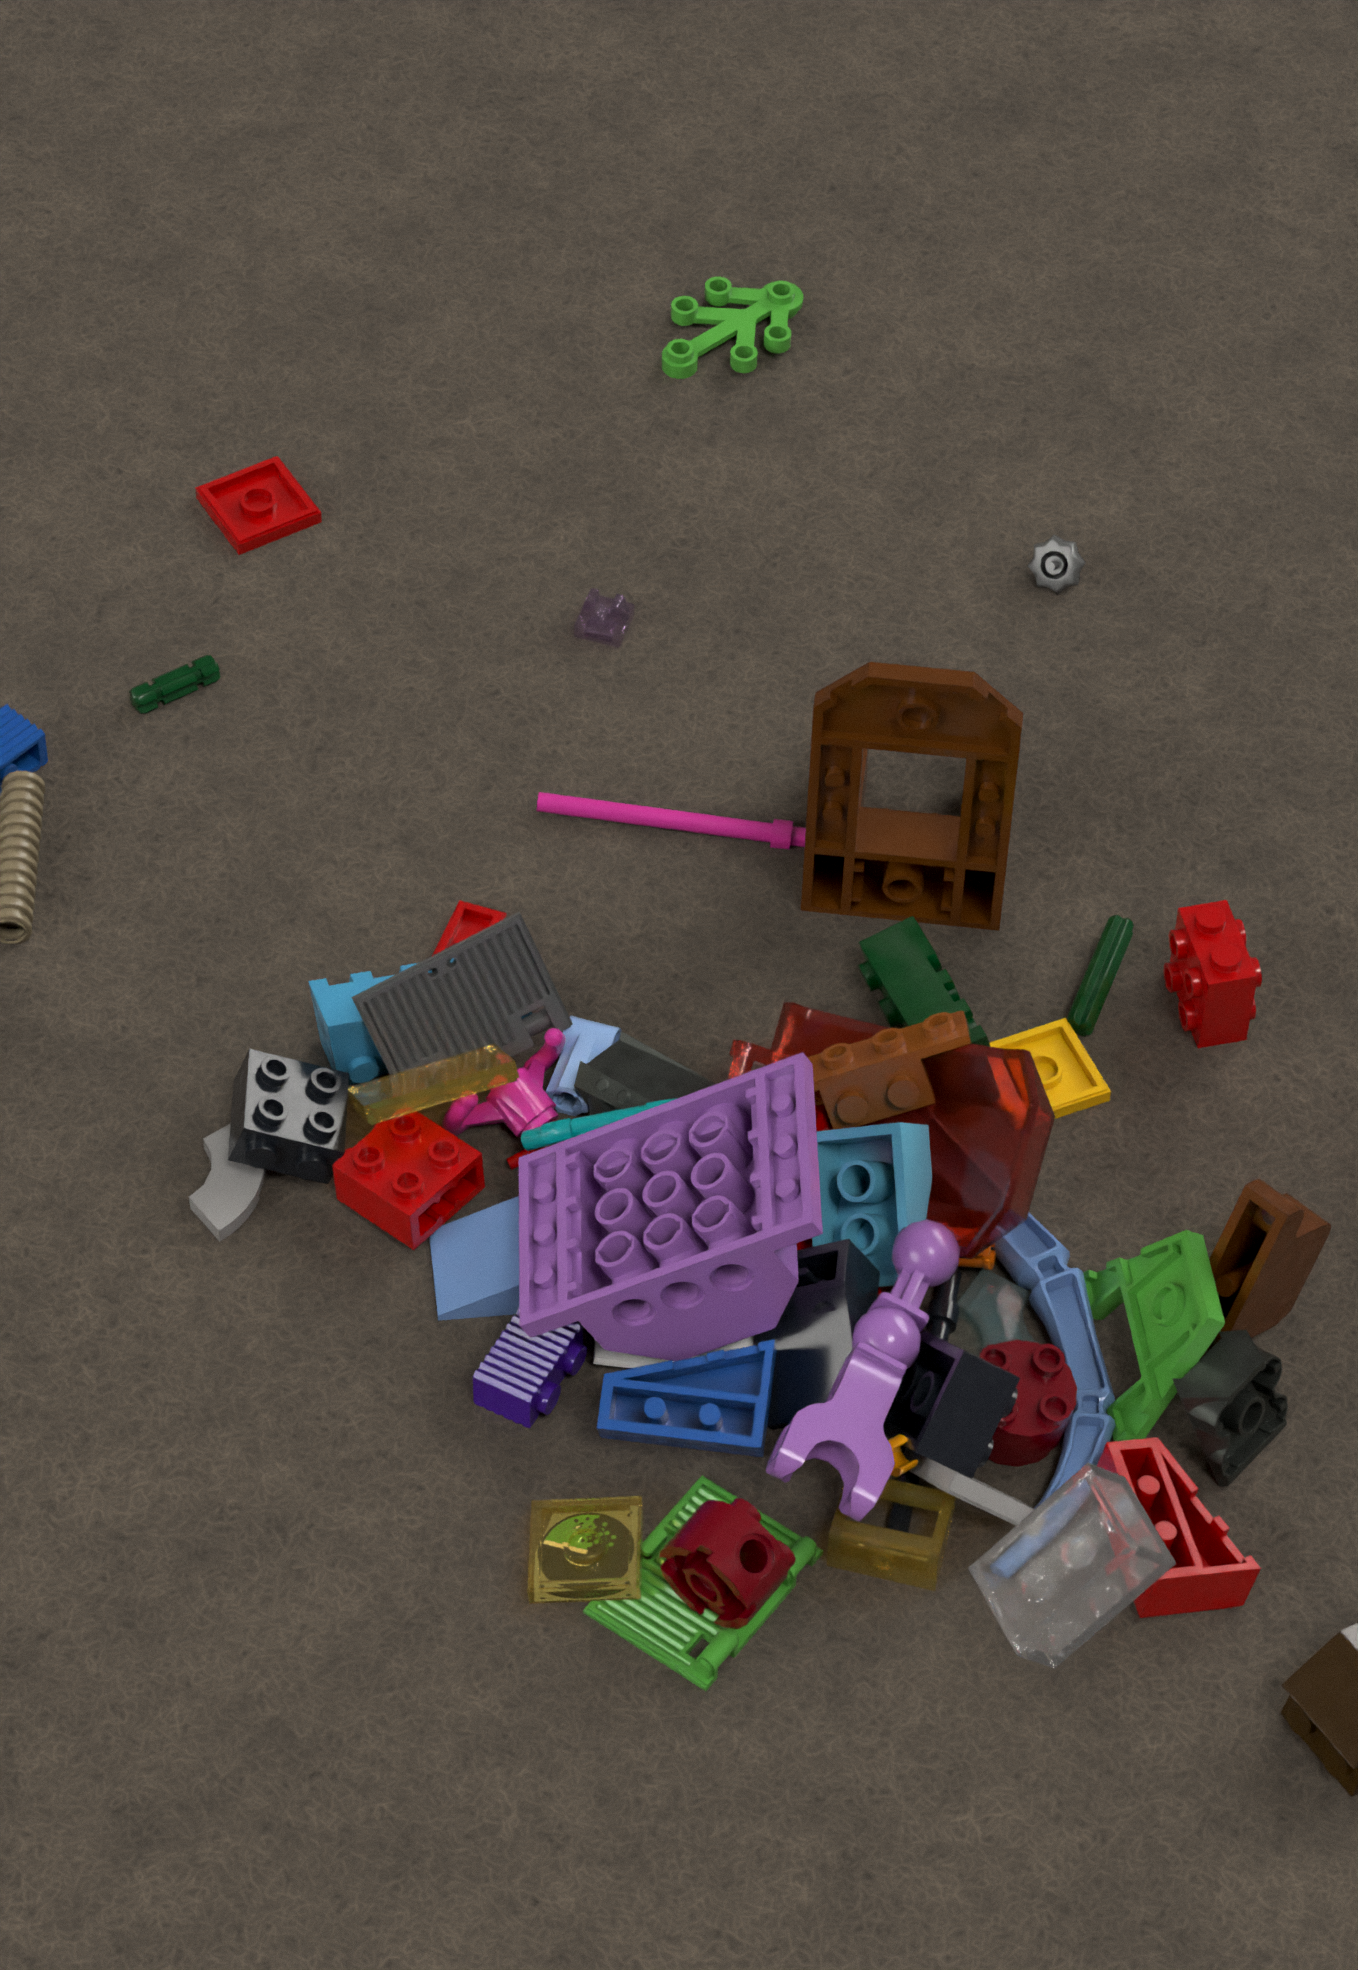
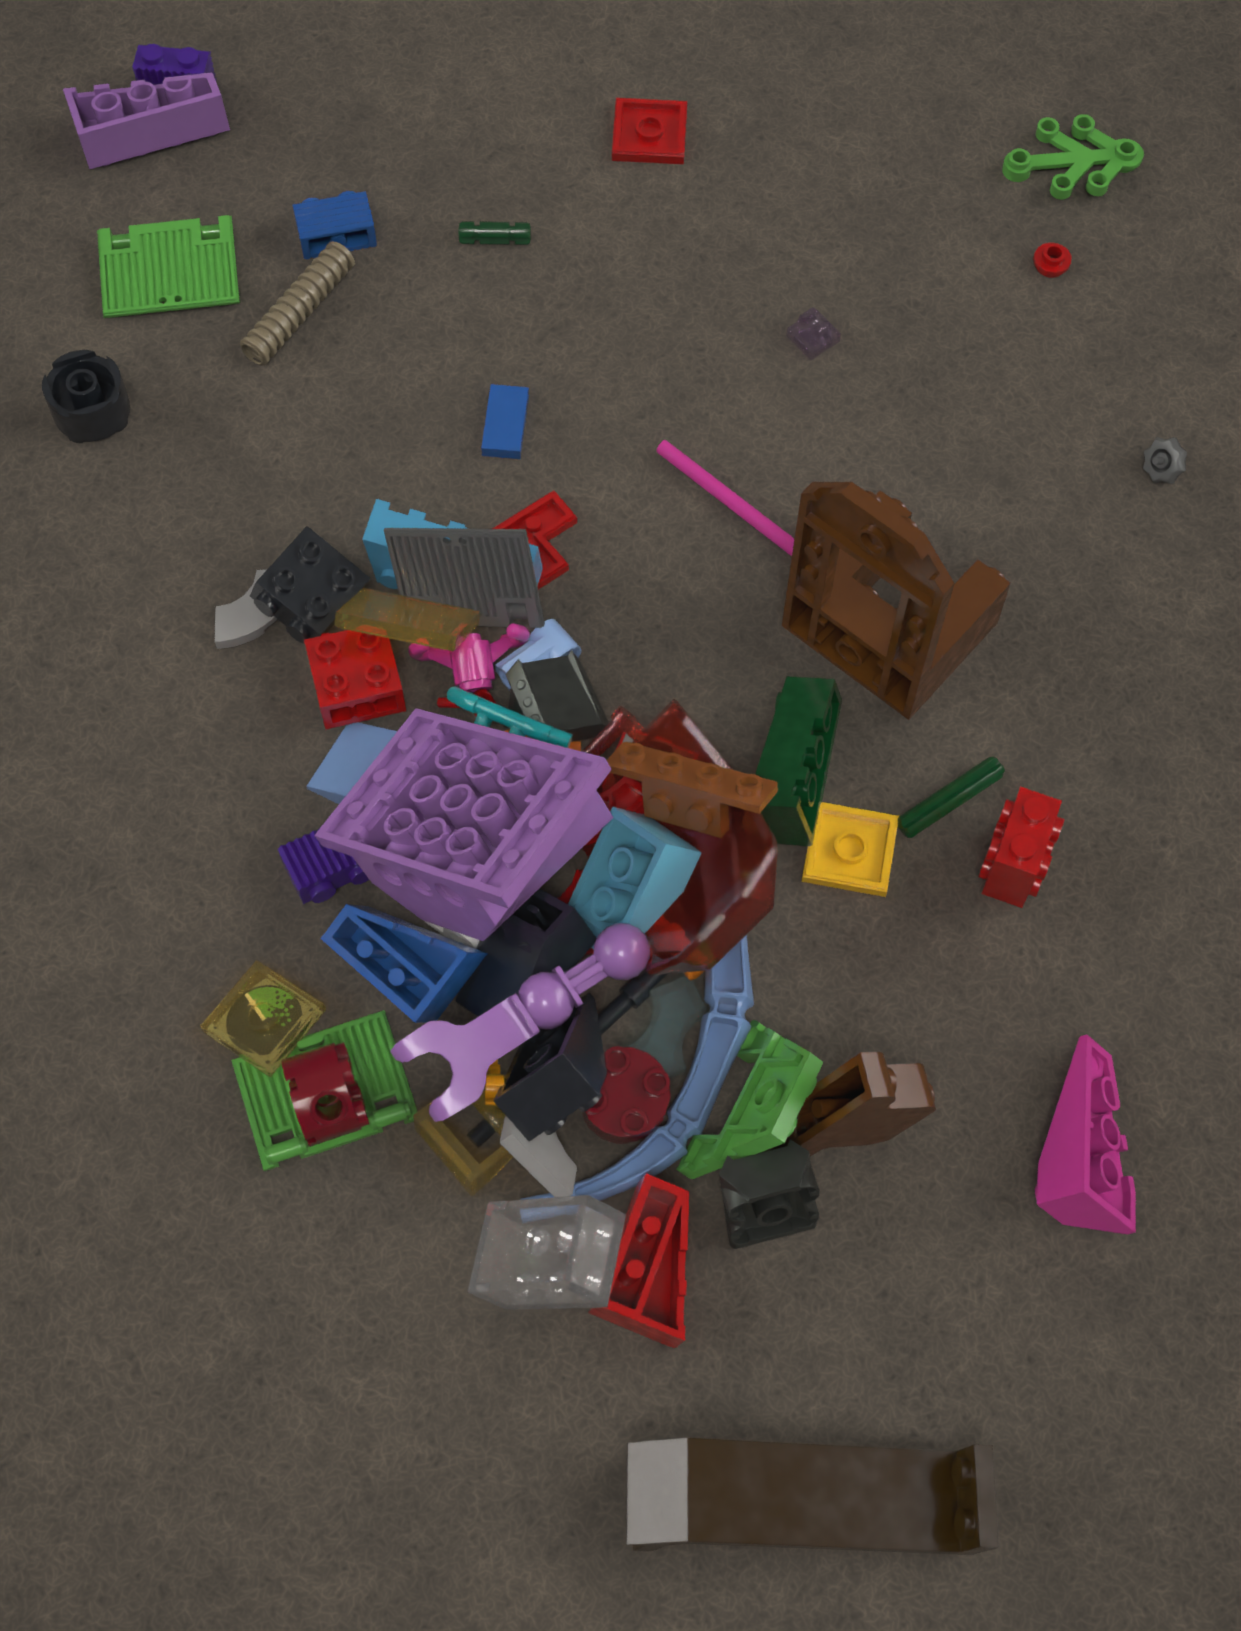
camera: 35 degrees right, 15 degrees up
(347, 862) = (505, 421): none -> blue tile
(789, 433) = (1053, 266): none -> red plate

